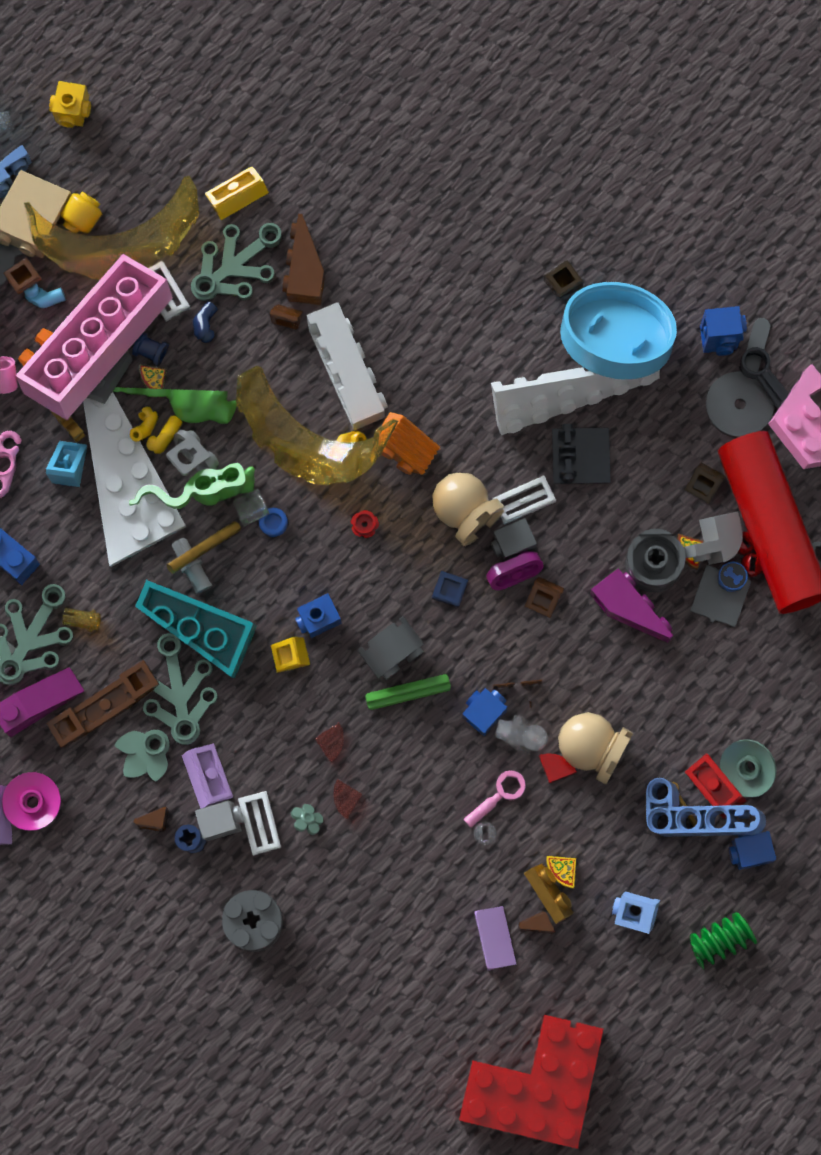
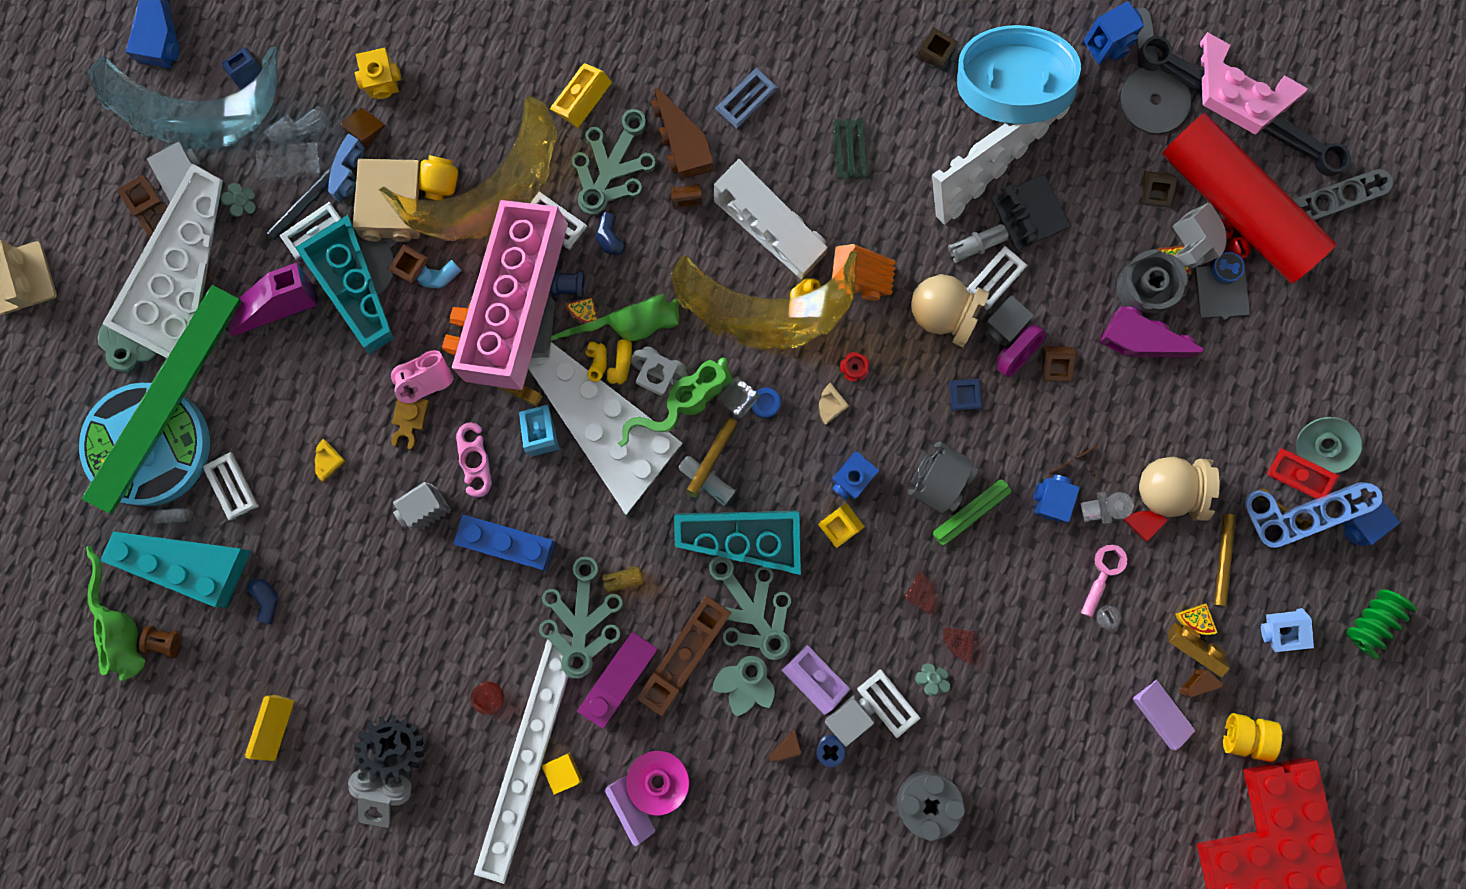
camera: 30 degrees left, 5 degrees up
(38, 143) = (362, 126): none -> reddish brown slope
(329, 547) = (831, 404): none -> tan tile
(380, 264) = (729, 116): none -> sand blue tile
(455, 314) = (848, 124): none -> clear green tile
(521, 462) = (978, 242): none -> light grey axle
(560, 988) = (1258, 738): none -> yellow wheel
(612, 829) = (1225, 559): none -> pearl gold bar

